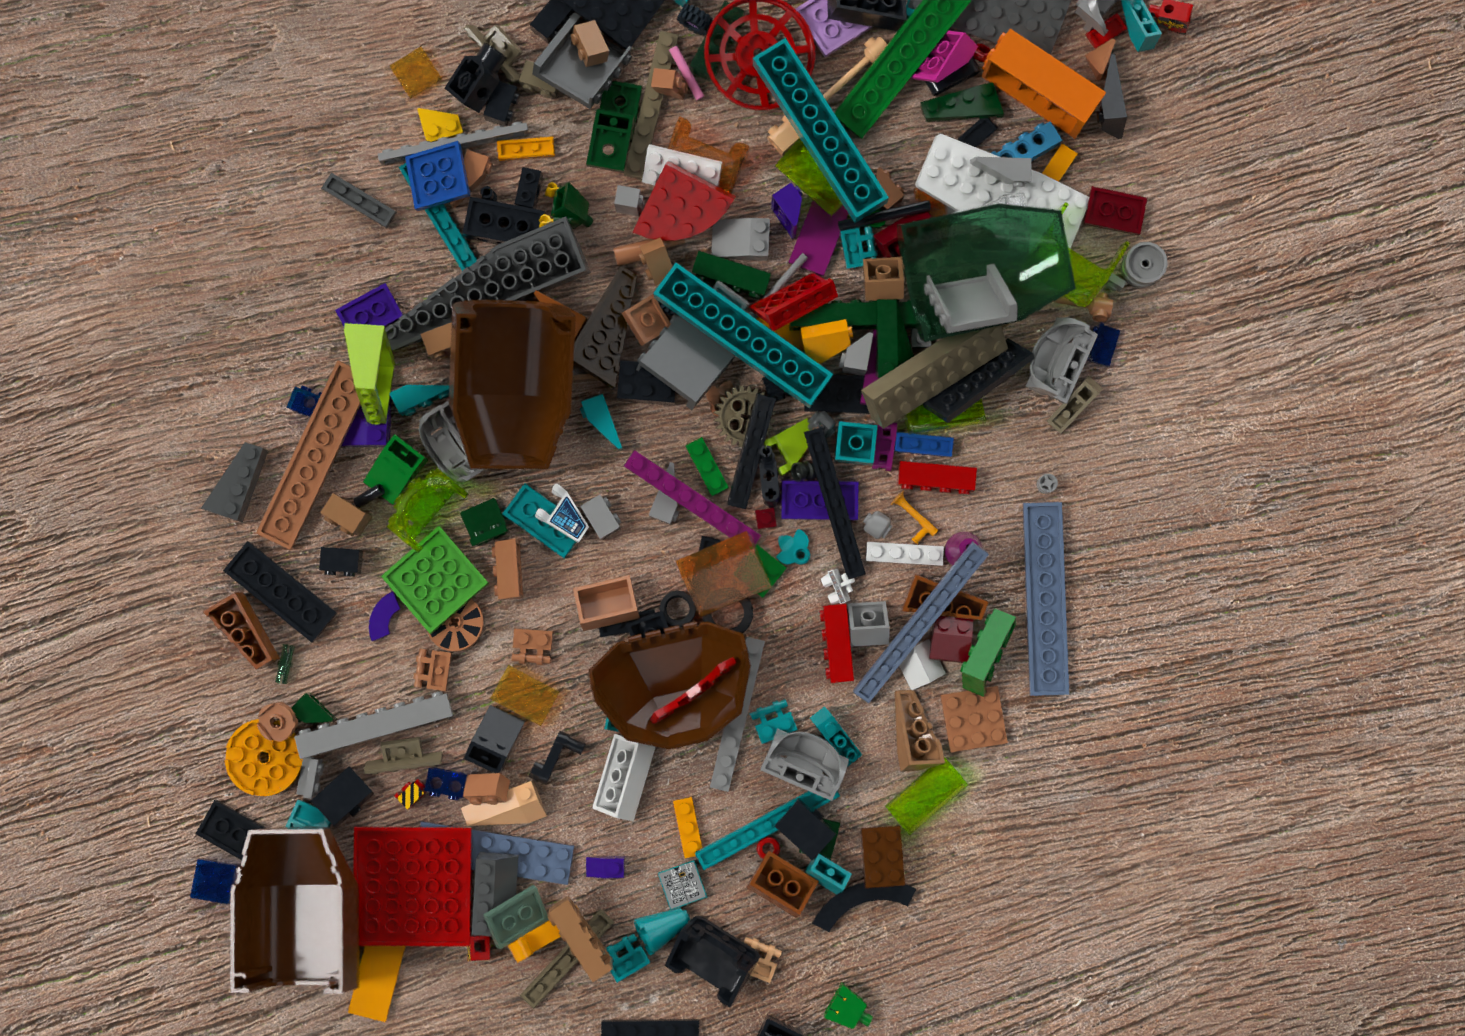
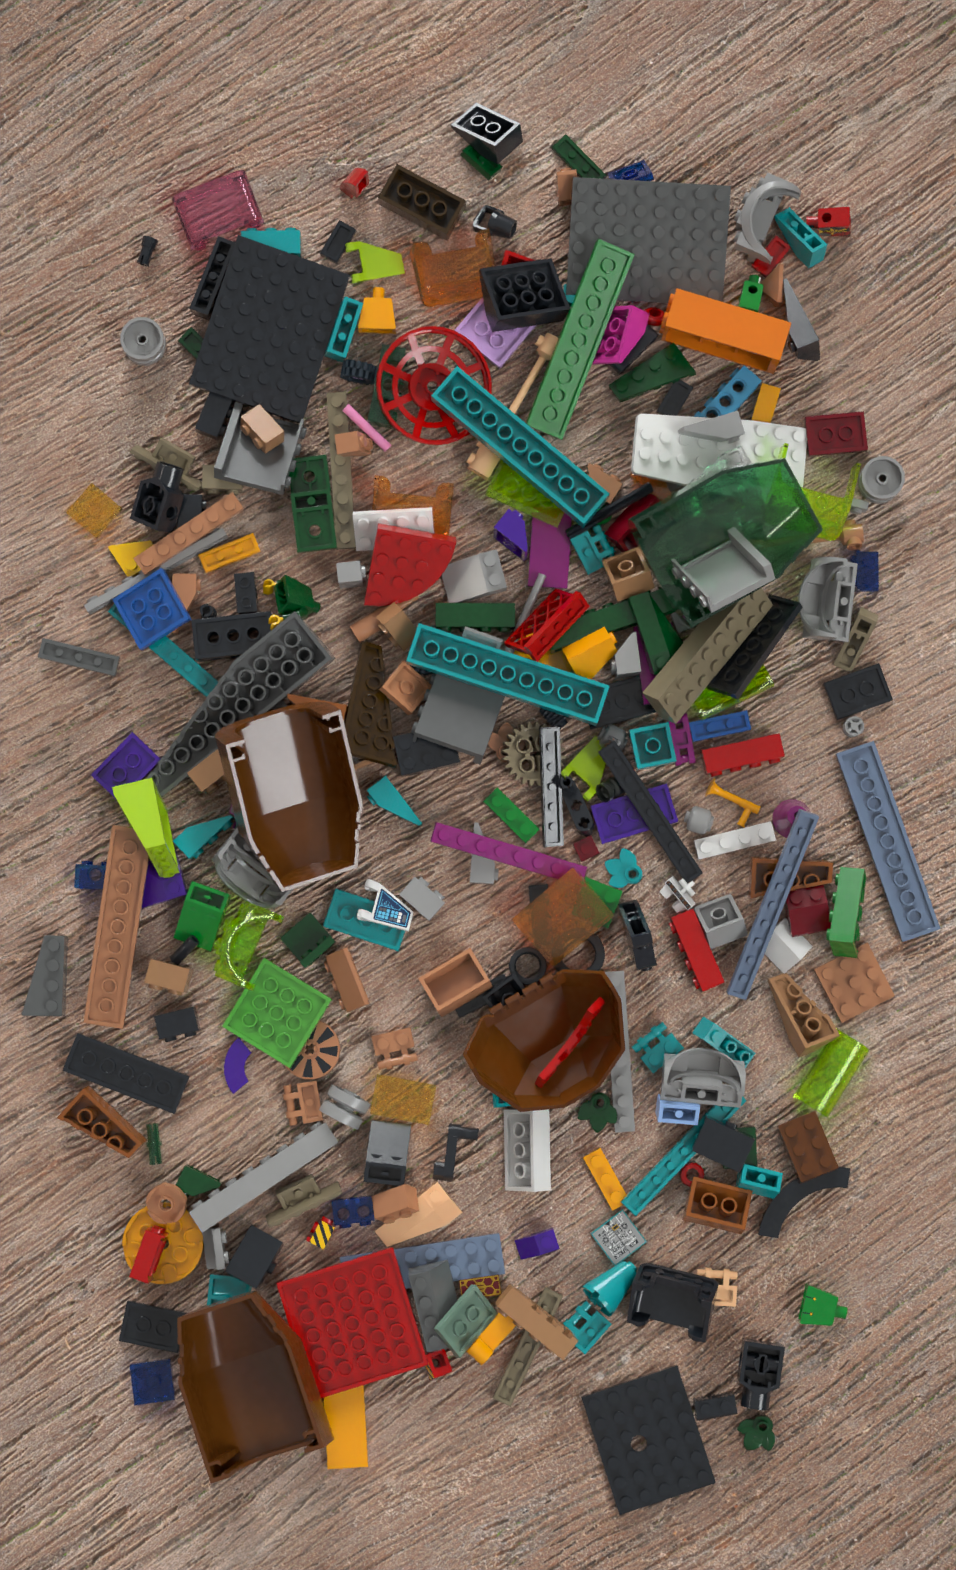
camera: 20 degrees left, 0 degrees up
(245, 763) = (149, 1254): none -> red window
(466, 687) = (346, 1103): none -> light grey wheel
(493, 118) = (188, 533): none -> nougat plate
(547, 890) = (487, 1285): none -> tile
(698, 766) = (598, 1115): none -> dark green plate
(772, 786) = (677, 1112): none -> light blue brick
(787, 612) = (637, 935): none -> black brick
(1061, 453) = (857, 691): none -> black tile
(1078, 56) = (751, 293): none -> green torso

